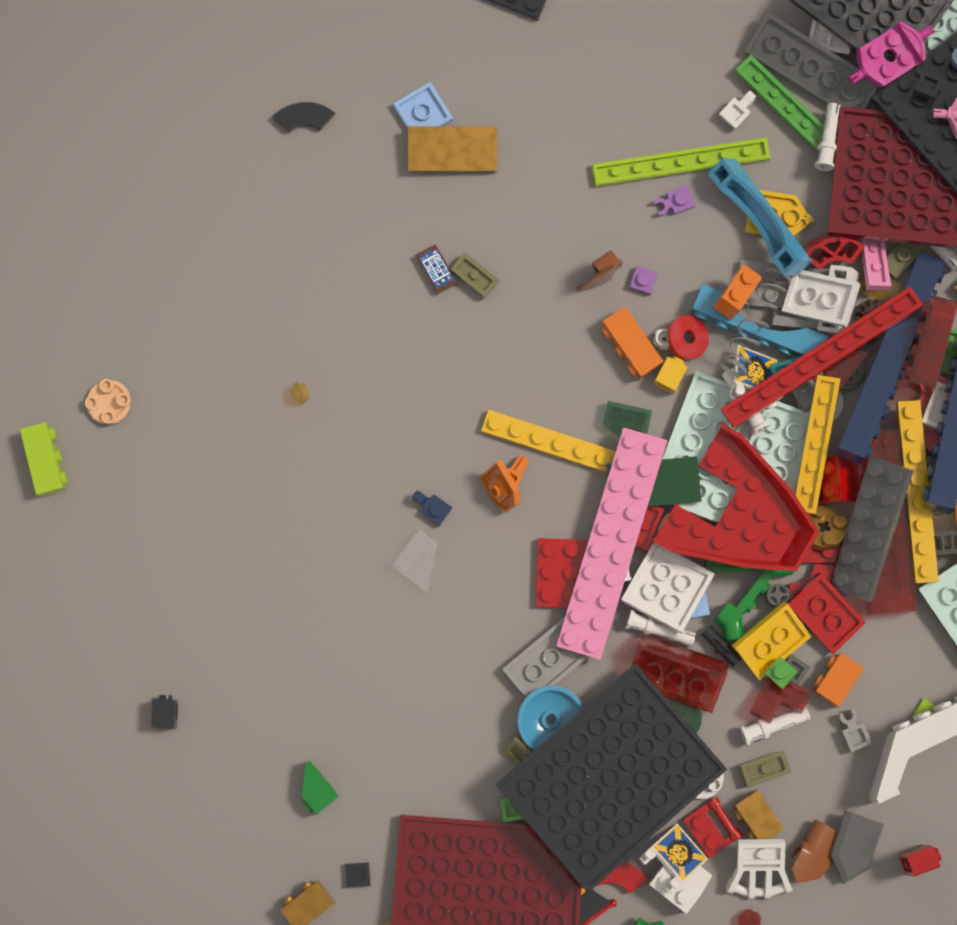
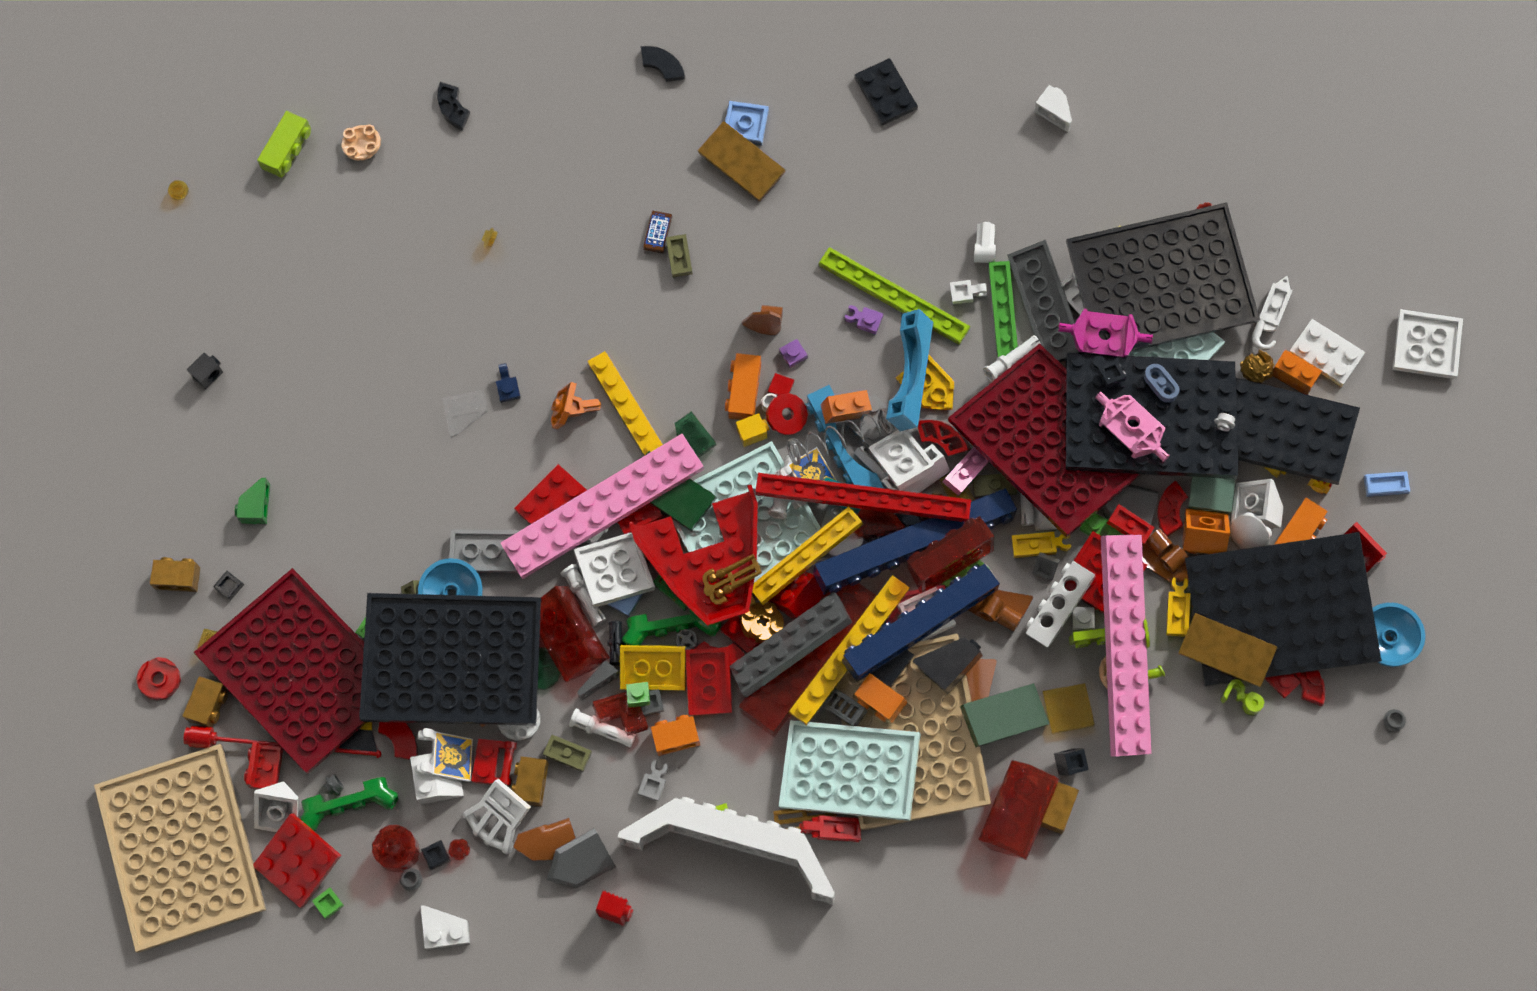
camera: 50 degrees right, 10 degrees down
(156, 305) = (450, 106): none -> black tile
(658, 317) = (780, 385): none -> red tile
(721, 61) = (984, 248): none -> white piece
(736, 684) = (600, 678): none -> dark grey slope
(768, 539) = (710, 575): none -> pearl gold piece

